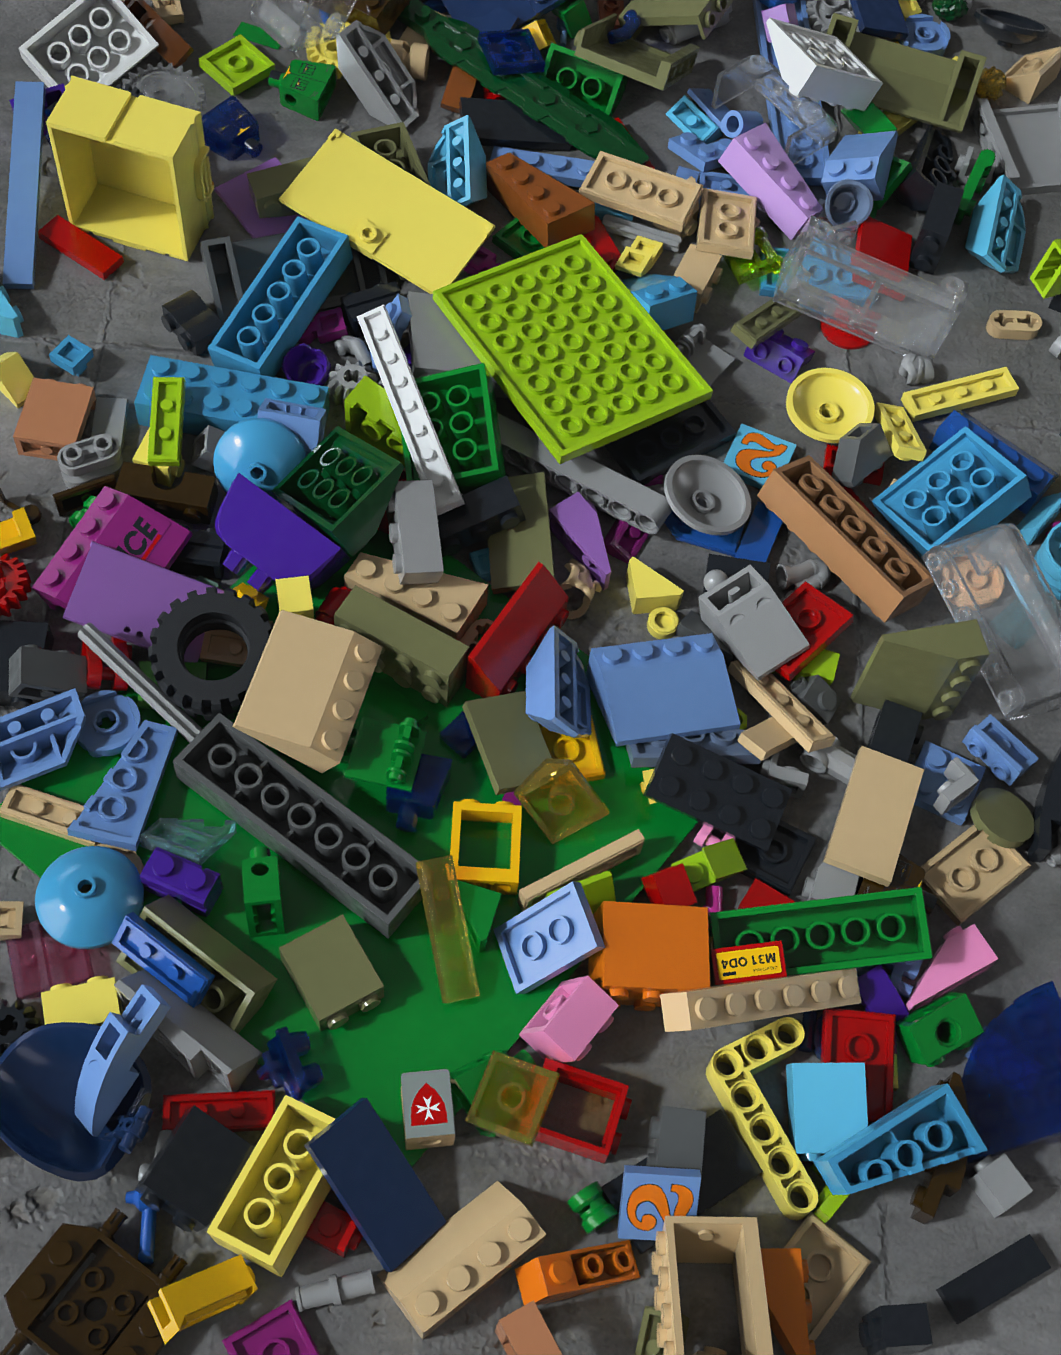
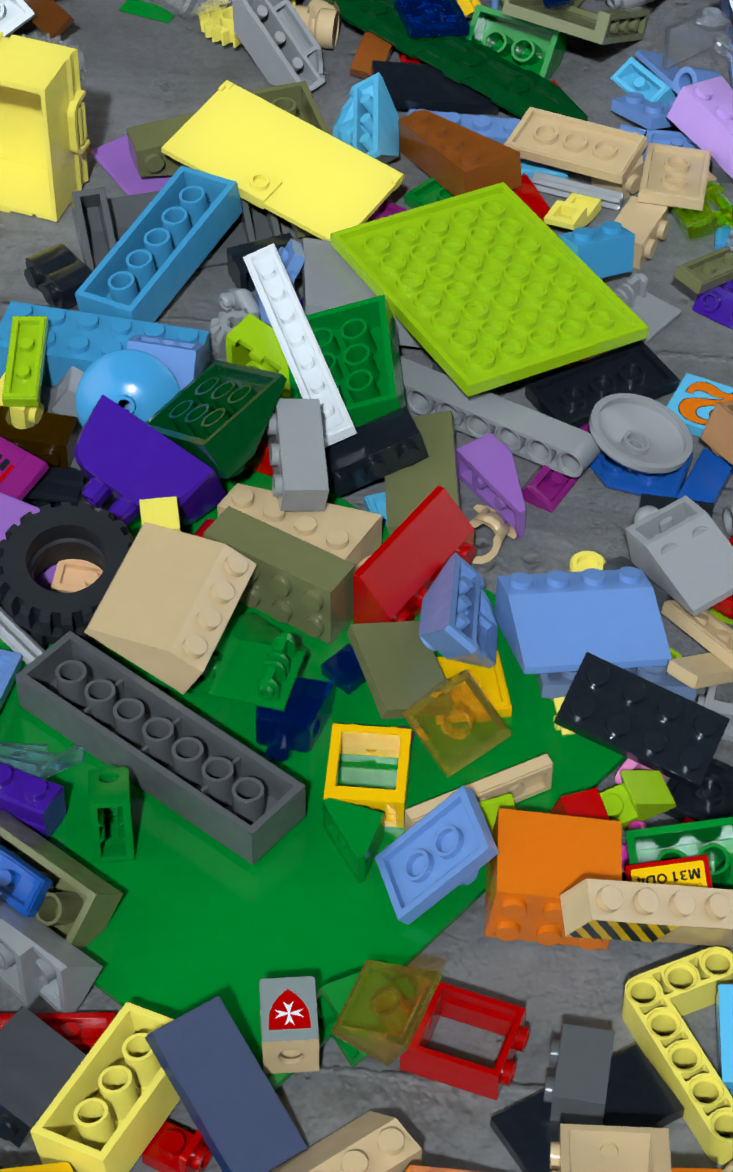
camera: 10 degrees right, 15 degrees down
(231, 130) = (113, 96): clear blue torso -> none
(236, 65) = (121, 36): lime plate -> none
(284, 1065) = (127, 977): clear blue hips -> none
(305, 87) = (197, 55): green torso -> none
(306, 365) = (185, 311): dark purple hair -> none
(326, 327) = (209, 281): magenta plate -> none
(332, 973) = (186, 892): olive brick -> none
(447, 929) = (320, 846): clear yellow tile -> none
(570, 1020) = (462, 937): bright pink brick -> none
(592, 1207) = (483, 1141): green wheel -> none
(650, 589) = (573, 531): light yellow slope -> none
(651, 1195) = (541, 1107): medium blue tile -> none

